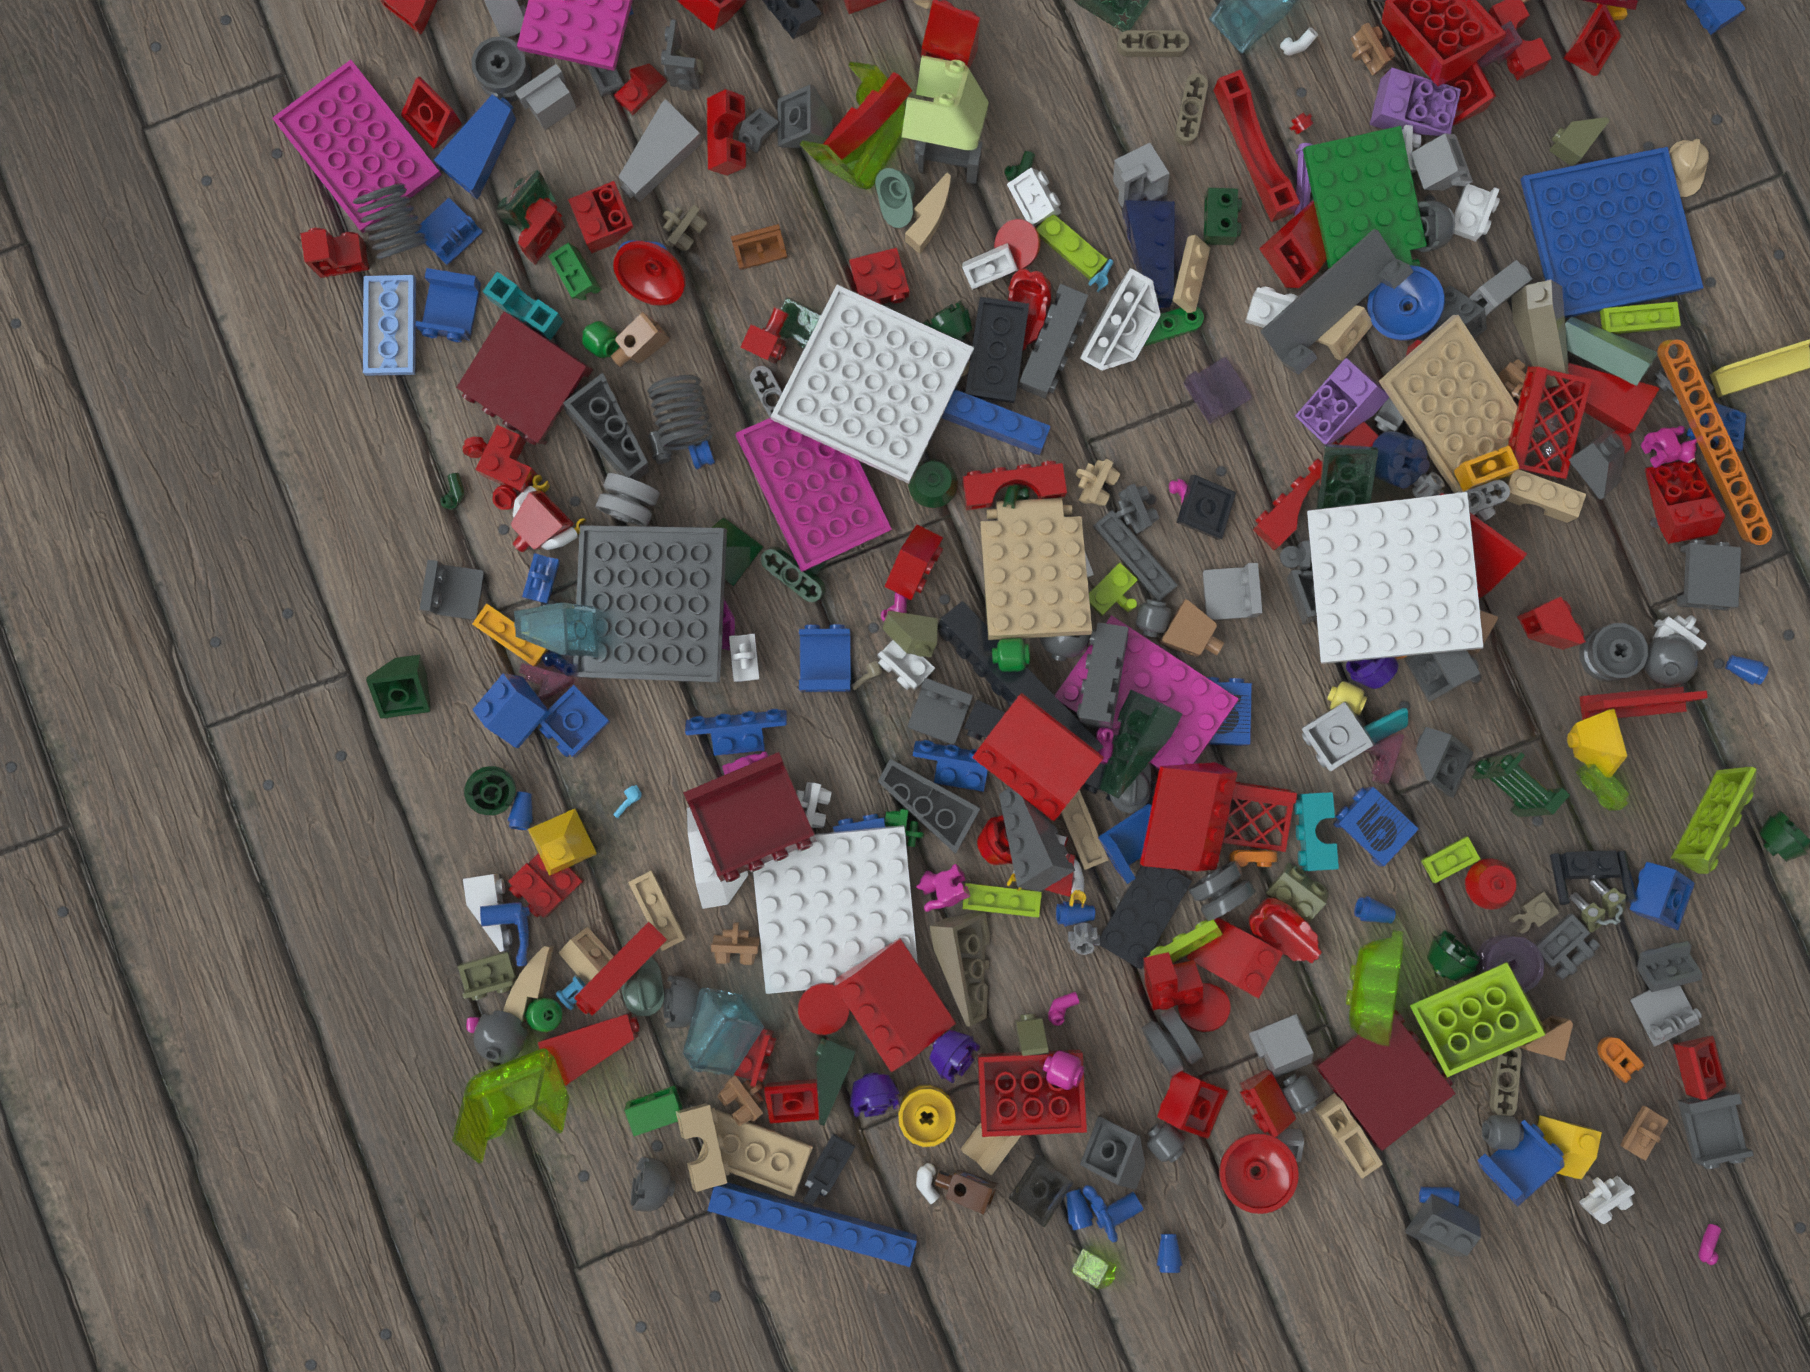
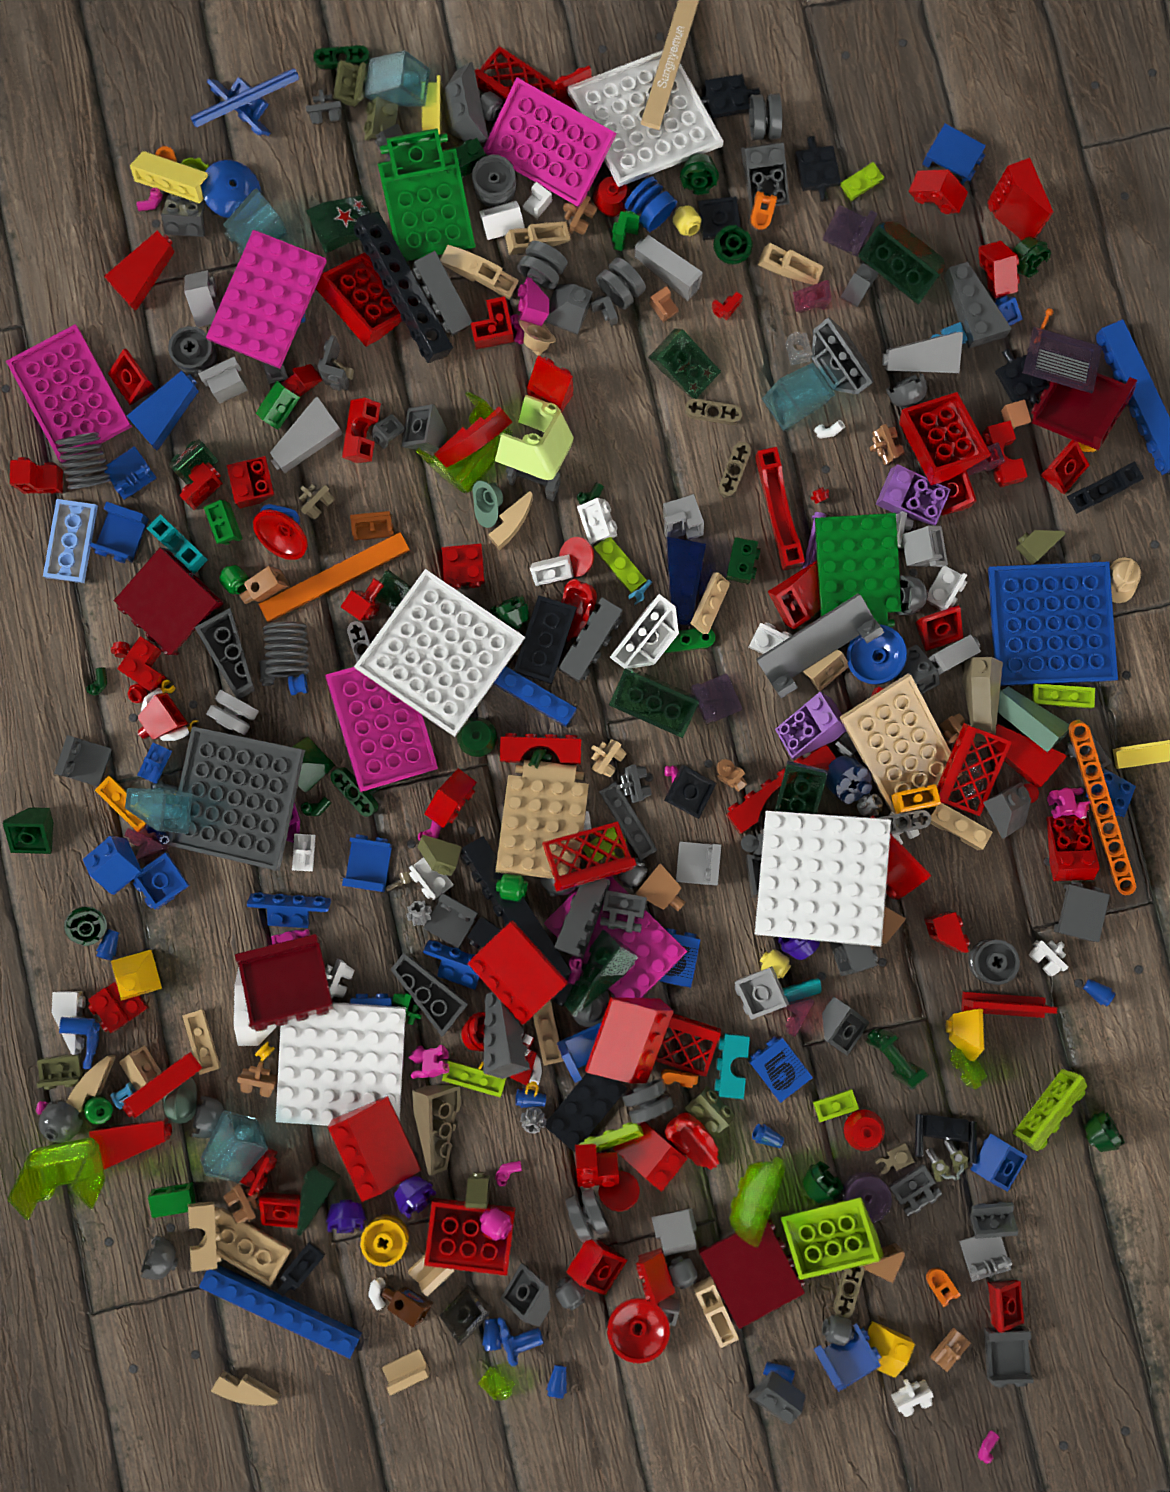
camera: 10 degrees right, 0 degrees up
(617, 119) = (277, 405): none -> green panel
(633, 795) = (198, 946): medium azure hand -> none
(722, 317) = (334, 577): none -> orange tile
(738, 909) = (264, 1051): none -> yellow bush
(748, 604) = (312, 809): none -> dark green arm
(786, 1330) = (245, 1391): none -> tan slope
(822, 1009) = (316, 1142): red piece -> none
(899, 708) = (419, 913): none -> light grey gear
(979, 1272) = (406, 1371): none -> tan panel
(1107, 621) = (593, 873): none -> red fence
(1145, 403) = (654, 701): none -> clear green windscreen
(1152, 655) = (623, 904): none -> dark grey plate
(1254, 477) = (731, 774): none -> medium nougat hips
(1476, 259) = (940, 628): none -> red slope
(1647, 58) = (1105, 488): none -> black slope
(1671, 660) = (1038, 976): dark grey cylinder -> none

